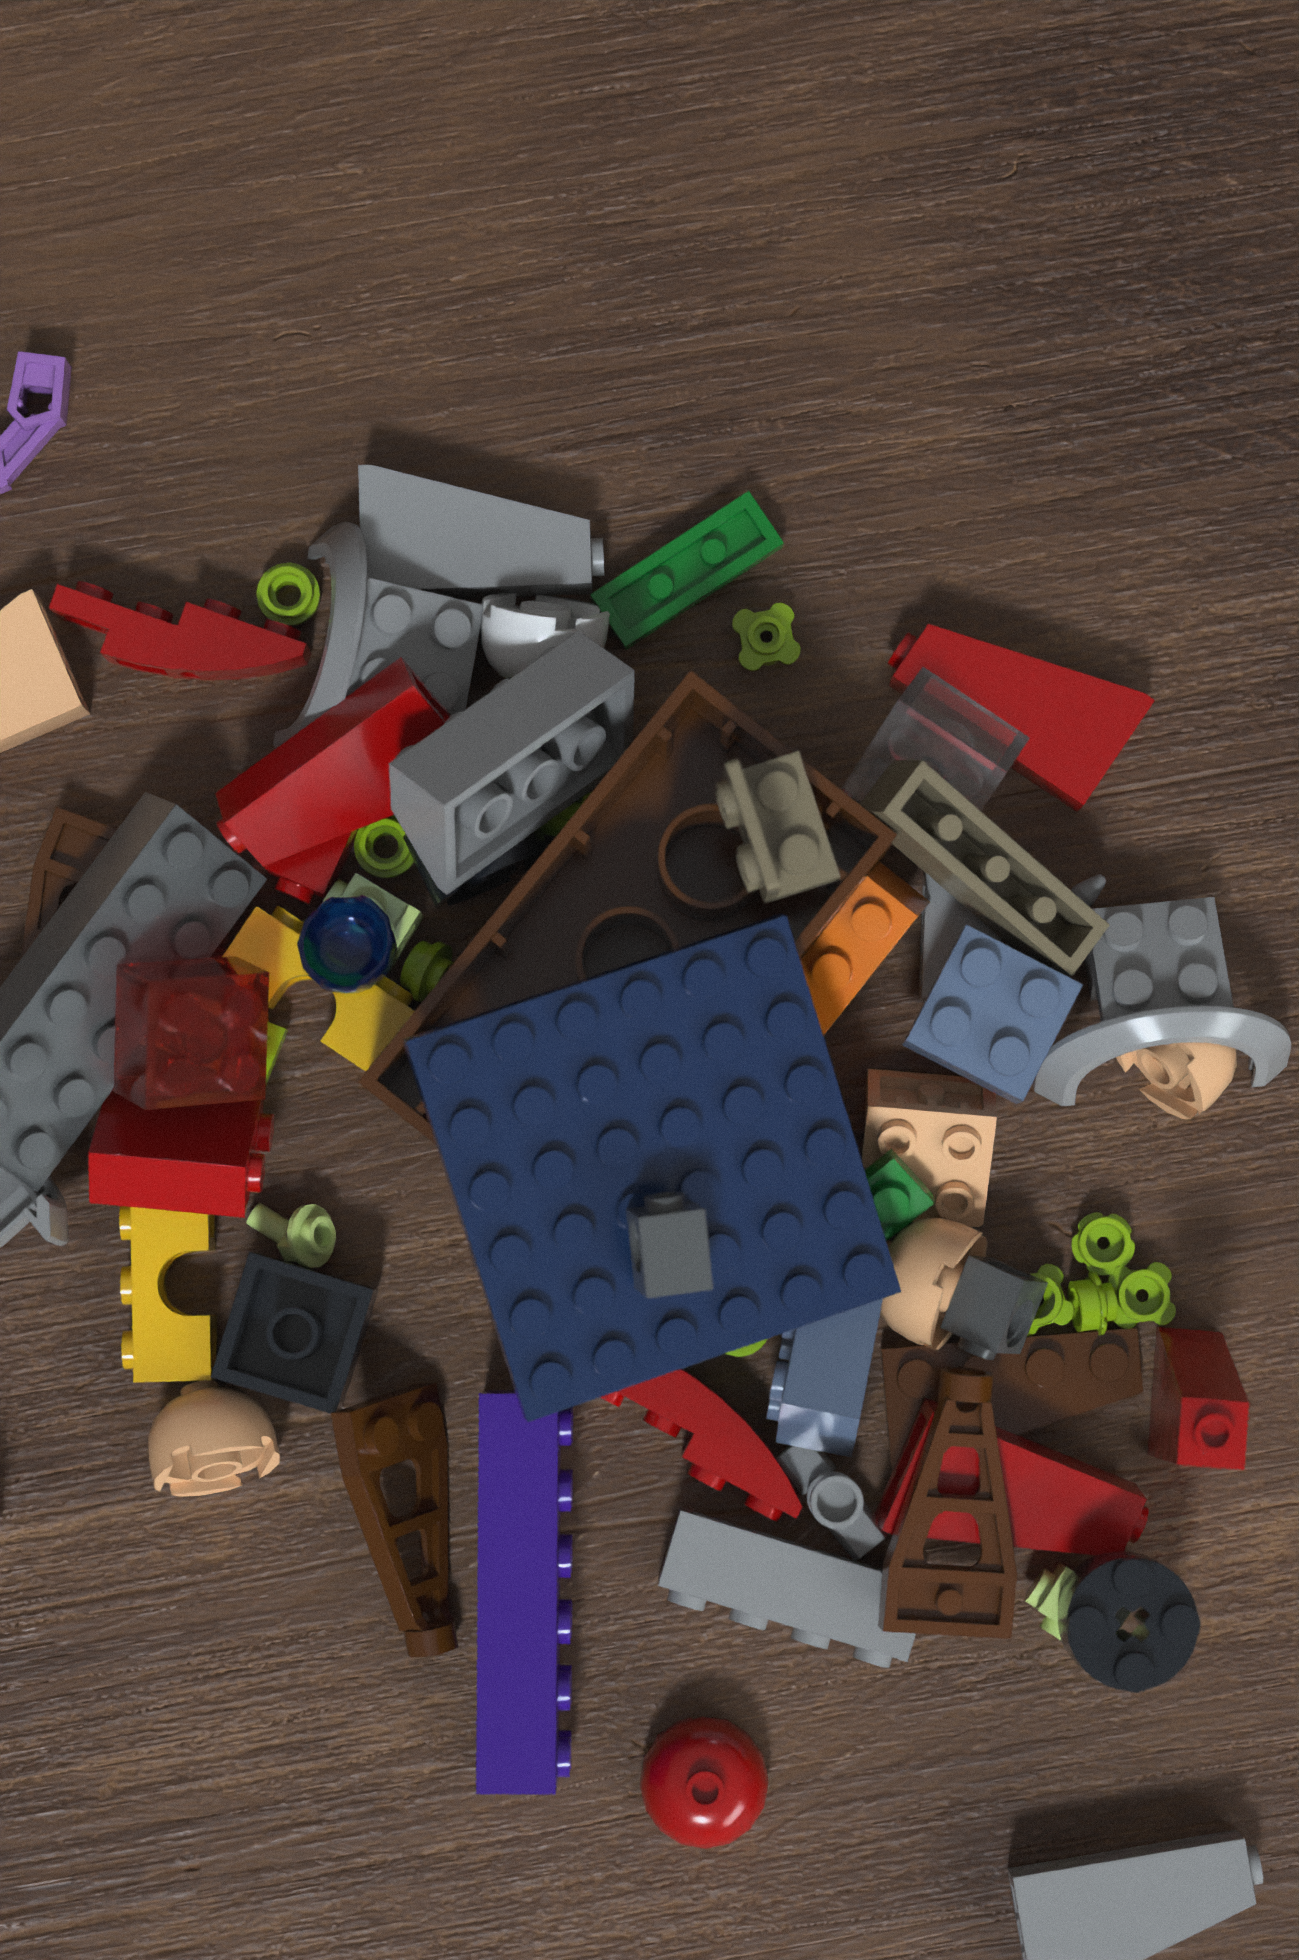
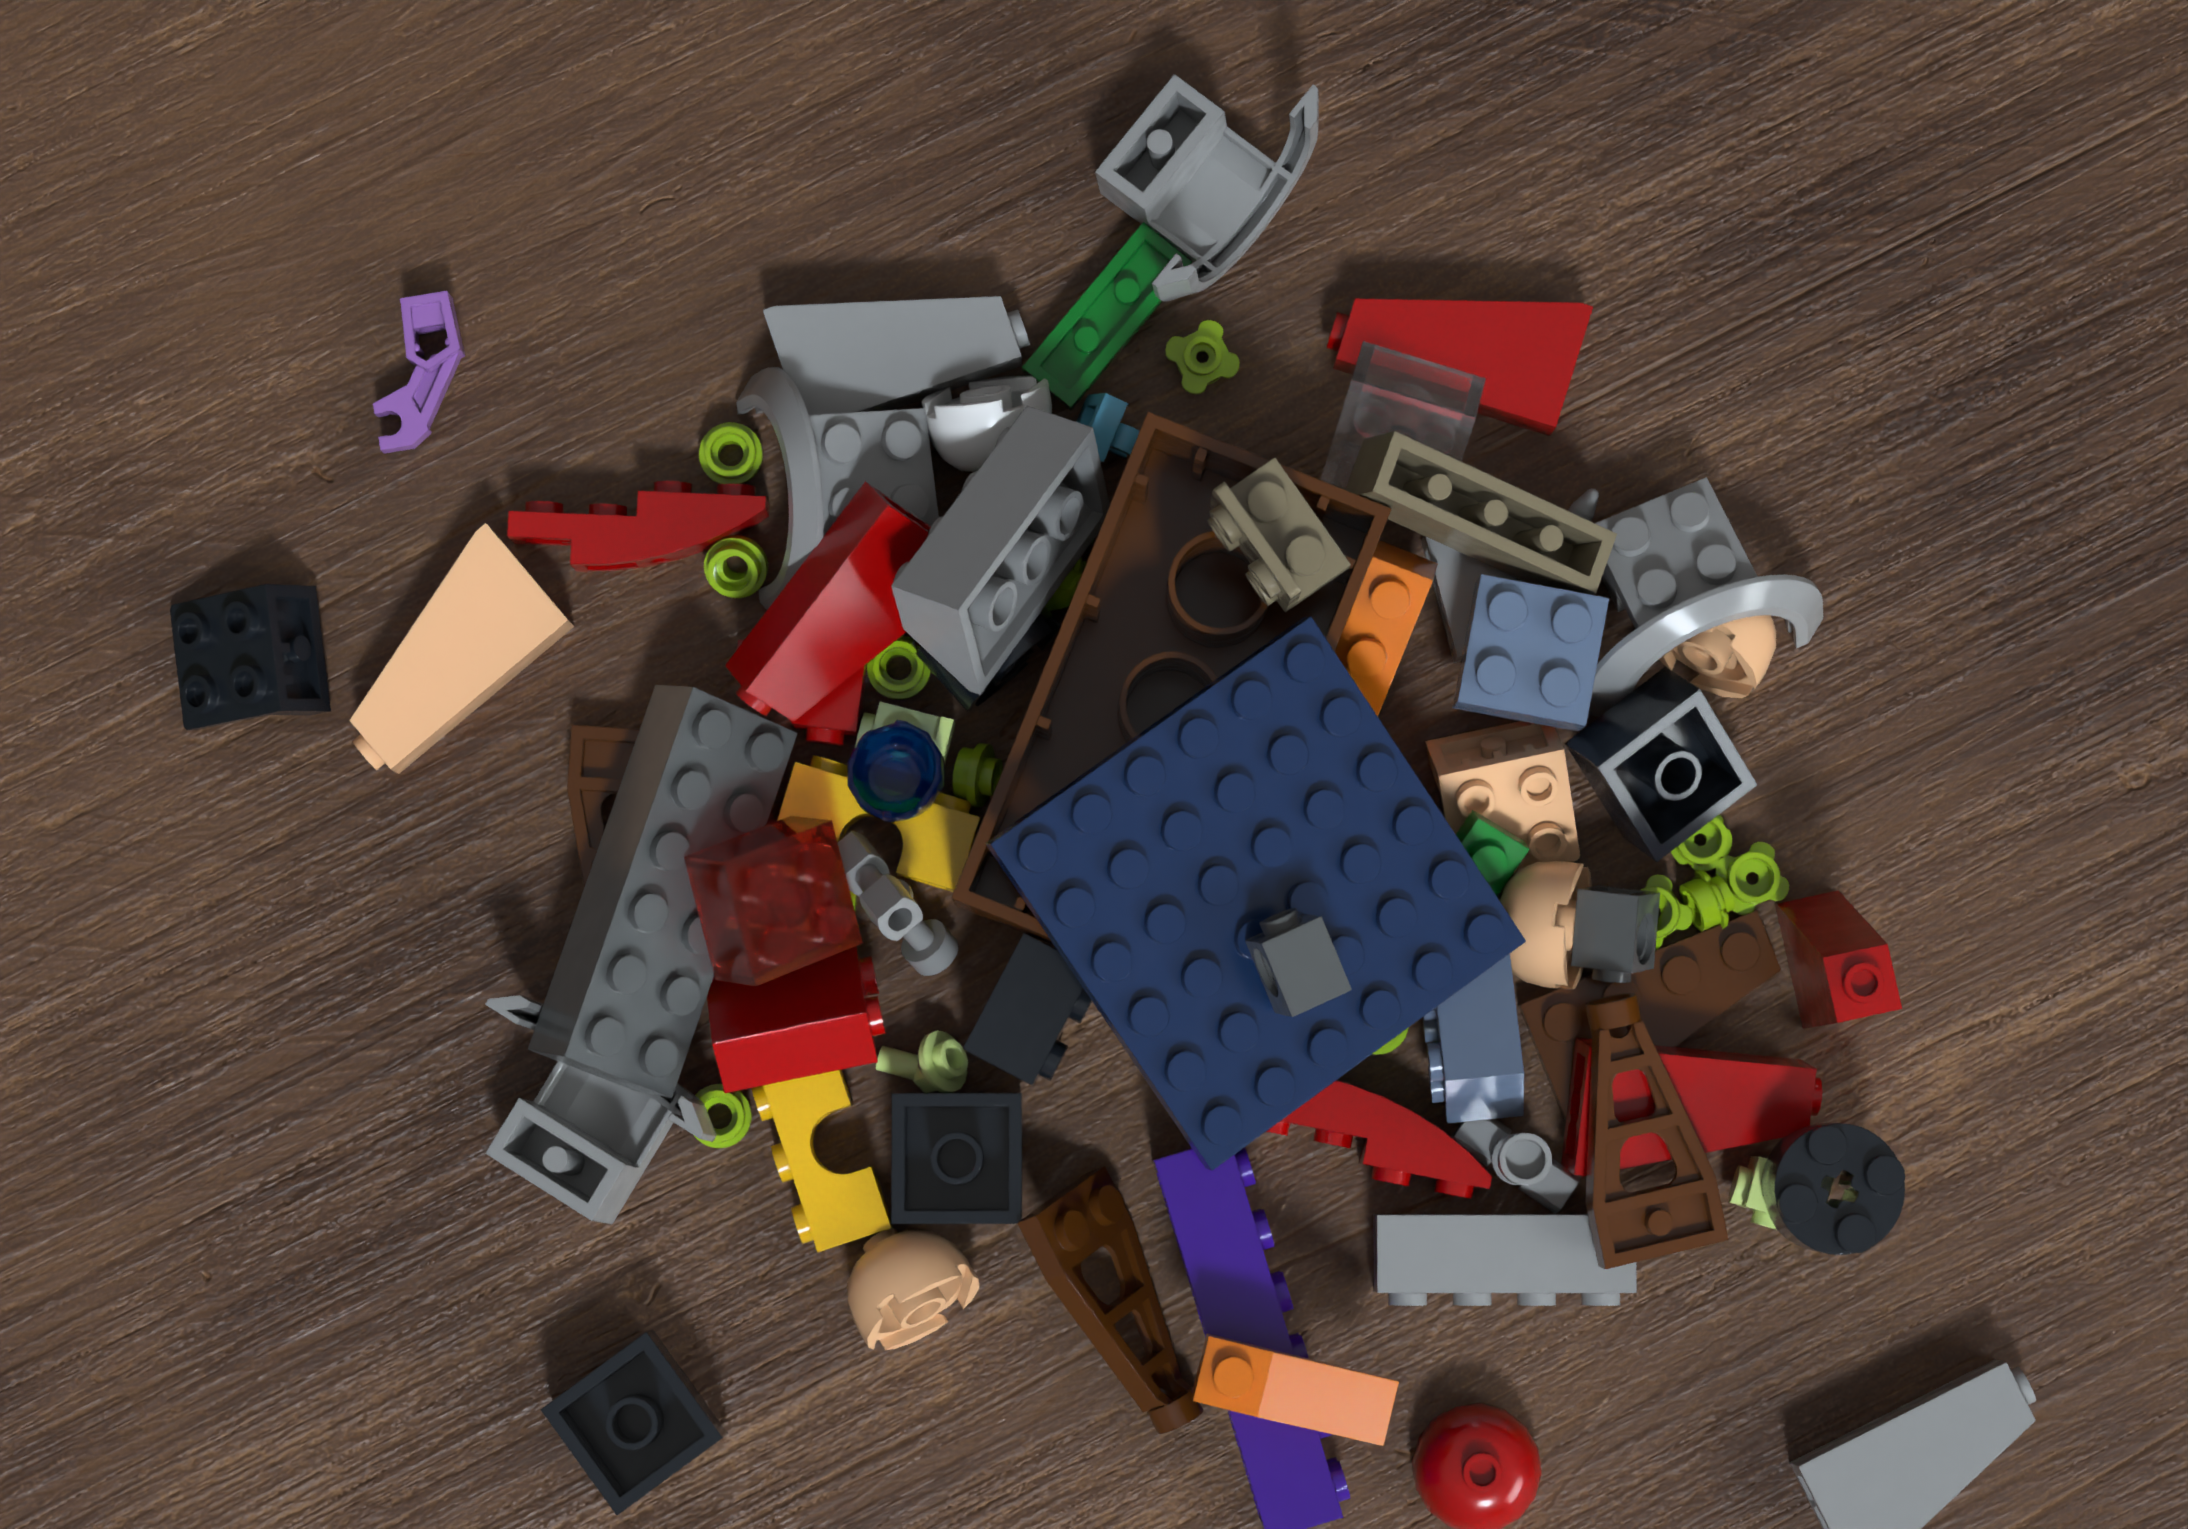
camera: 20 degrees left, 0 degrees up
(103, 1229) = (740, 1111): none -> lime plate
(245, 711) = (727, 581): none -> lime plate
(302, 1072) = (892, 908): none -> light grey bar
(401, 1217) = (1029, 1013): none -> black brick
(543, 1657) = (1294, 1390): none -> orange slope
(651, 667) = (1104, 415): none -> medium azure tile
(816, 469) = (1202, 182): none -> light grey piece
(1086, 1159) = (1661, 763): none -> black brick

